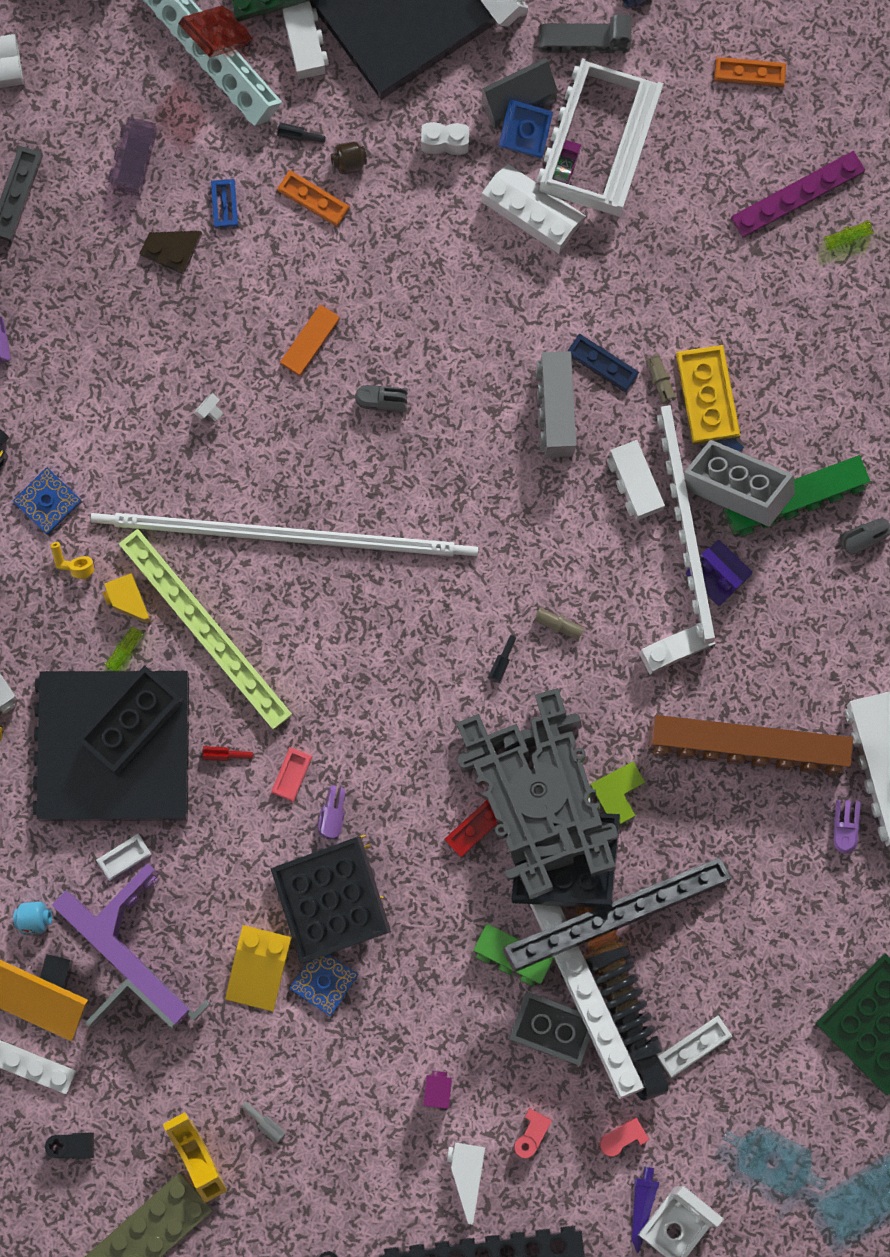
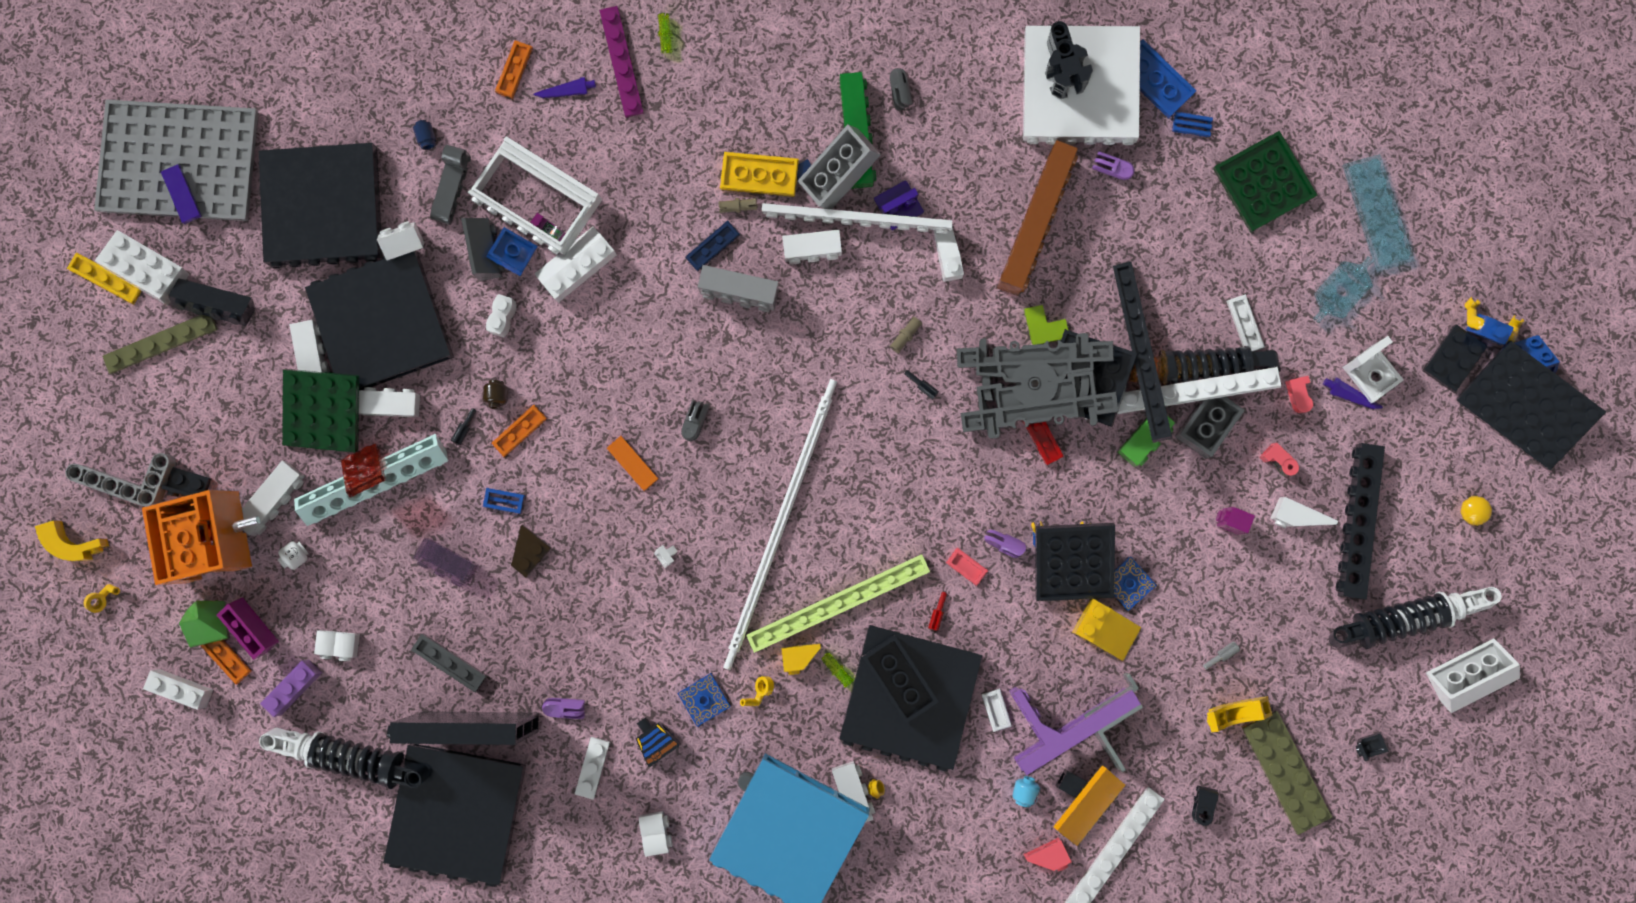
camera: 70 degrees left, 5 degrees up
(748, 147) = (574, 87): none -> dark purple bar

